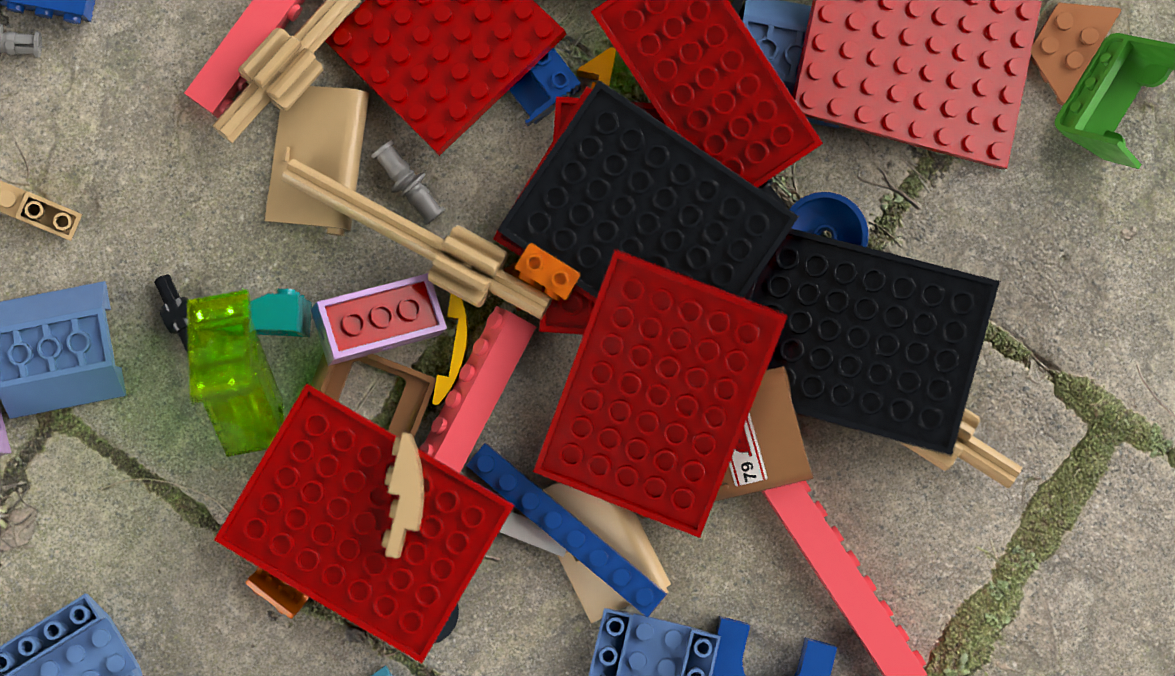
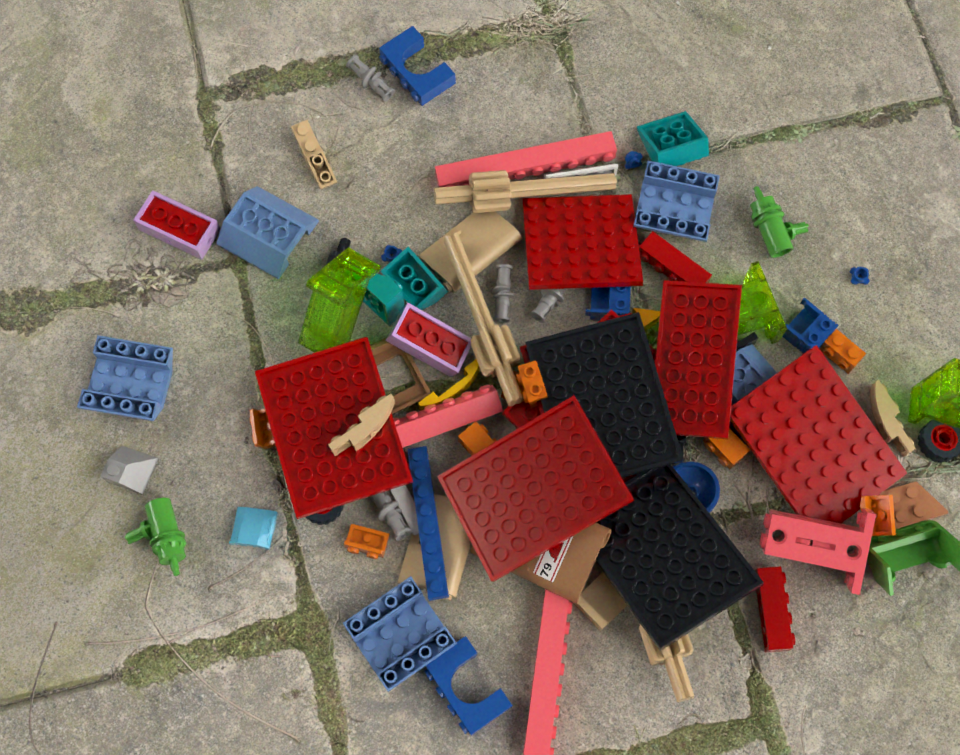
camera: 45 degrees right, 15 degrees down
(225, 243) = (390, 250): none -> blue plate
(291, 259) = (418, 282): none -> teal slope
(471, 153) = (547, 303): none -> light grey piece
(516, 610) = (366, 541): none -> orange bracket
(522, 558) = (391, 515): none -> light grey piece
(538, 387) = (475, 438): none -> orange brick
(831, 448) = (600, 602): none -> tan panel
(833, 152) = (728, 451): none -> orange brick
(1017, 172) = (821, 542): none -> coral brick
(1023, 291) = (773, 610): none -> red brick
(1051, 83) = (883, 508): none -> orange bracket

